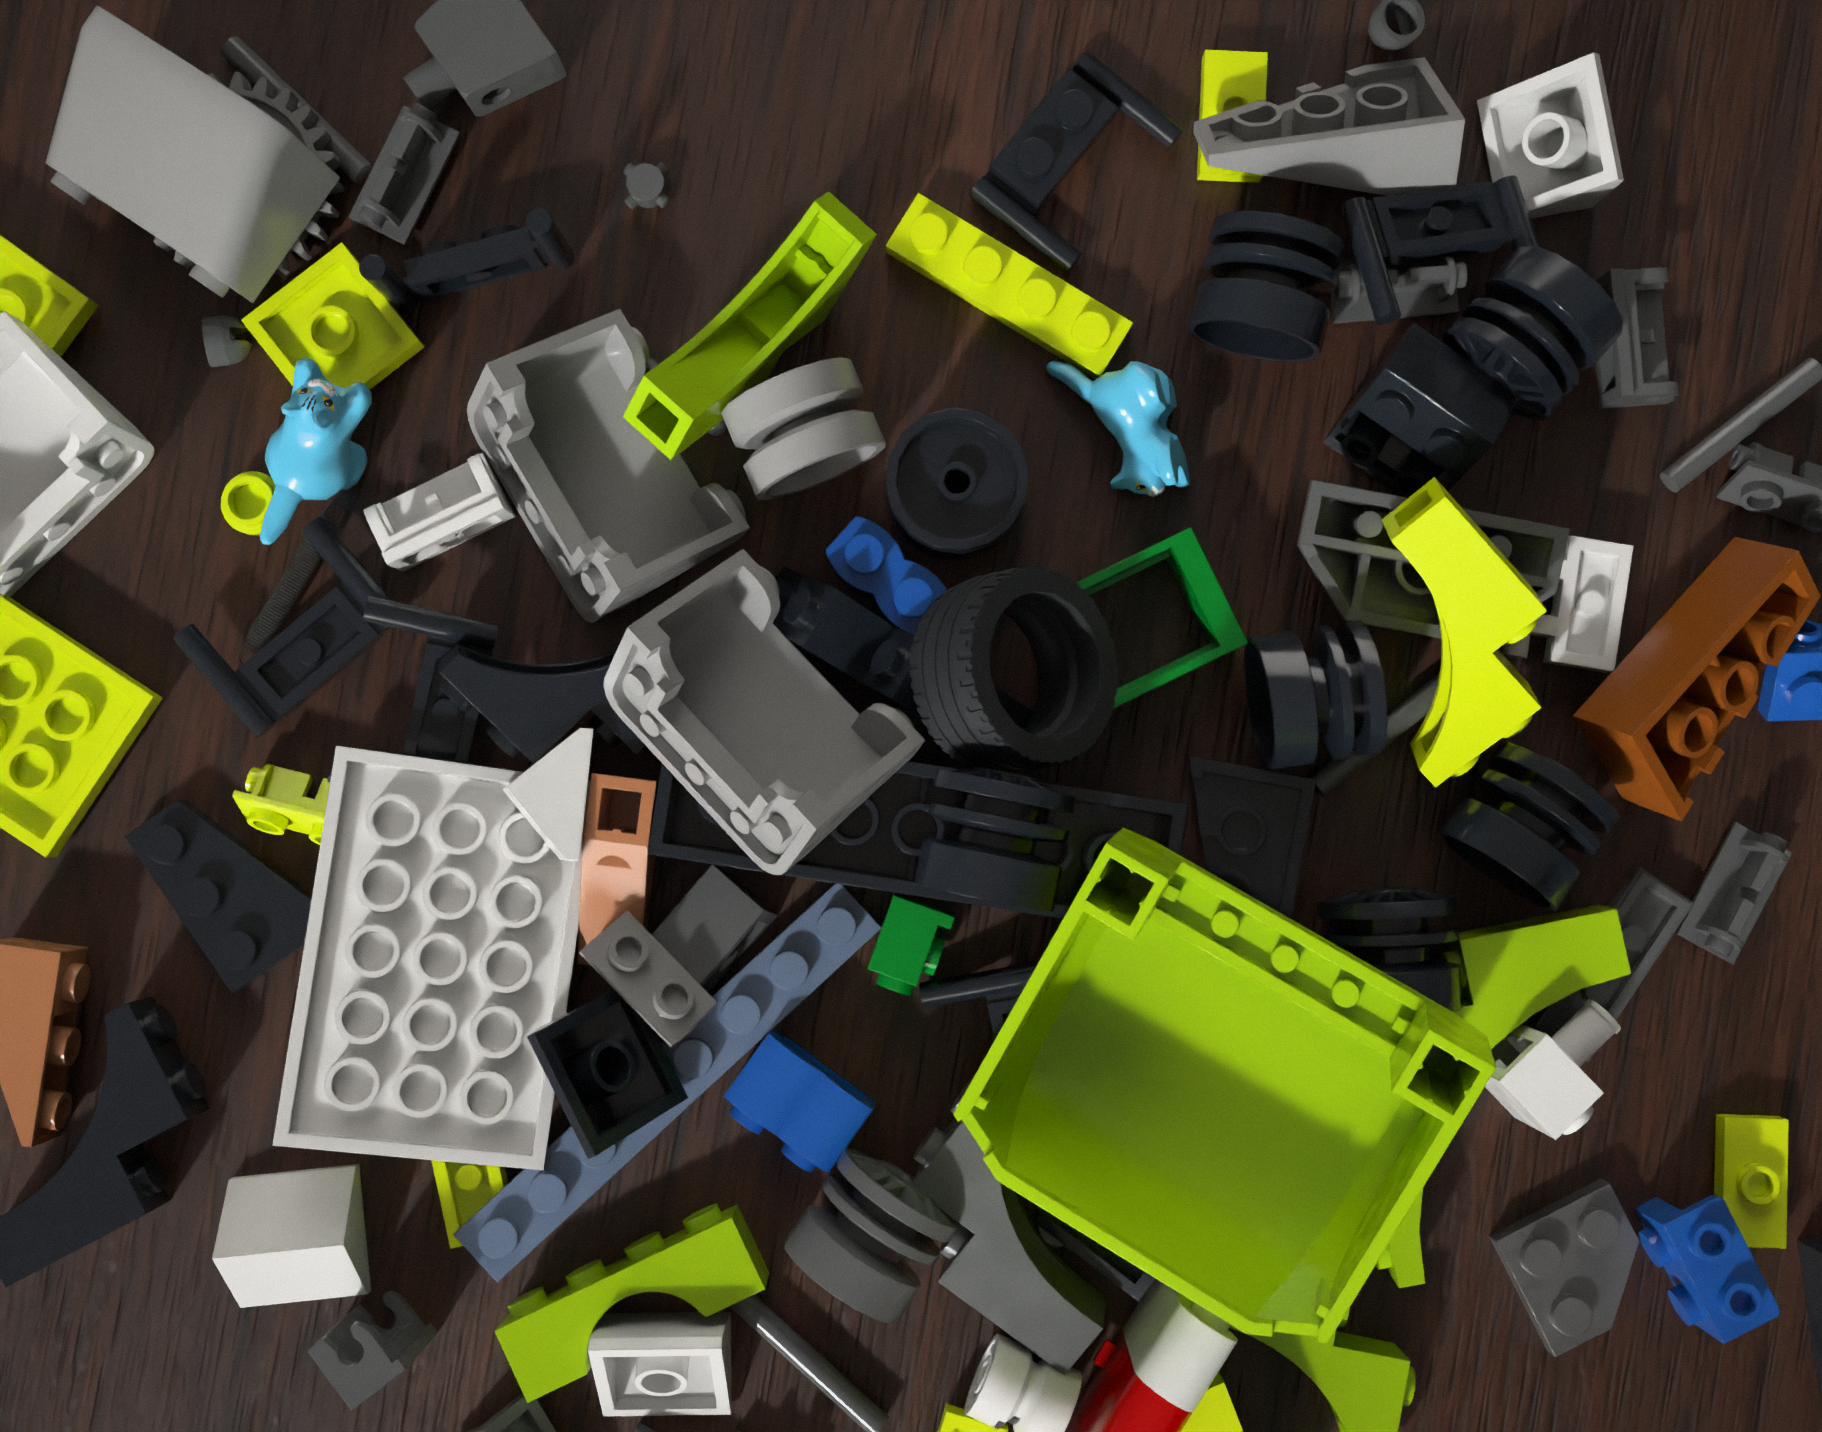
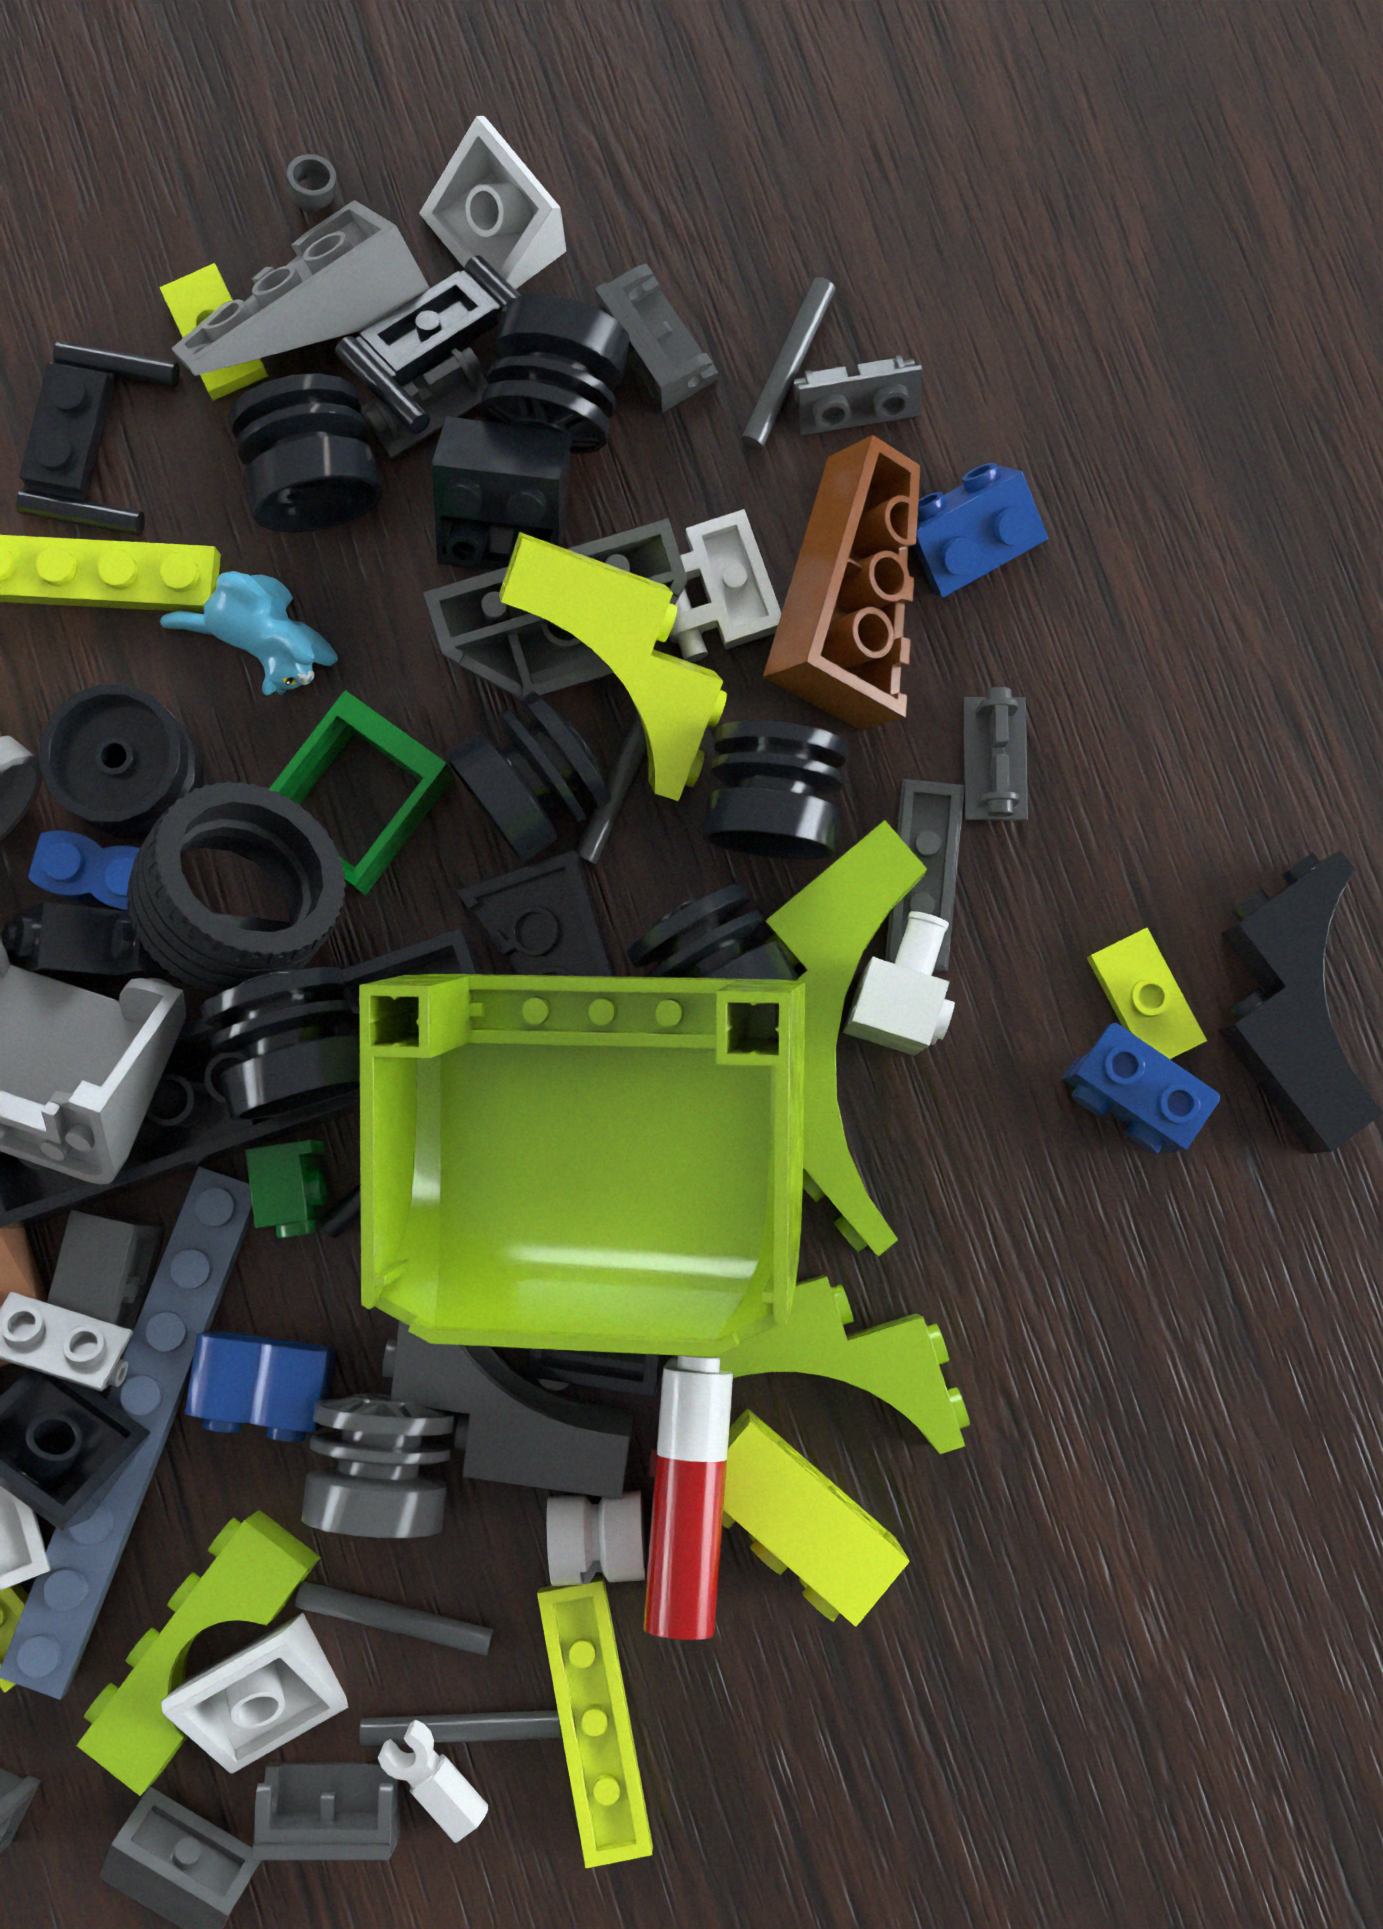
camera: 25 degrees left, 5 degrees down
(1570, 1264) = (1030, 1158): flat silver plate -> none

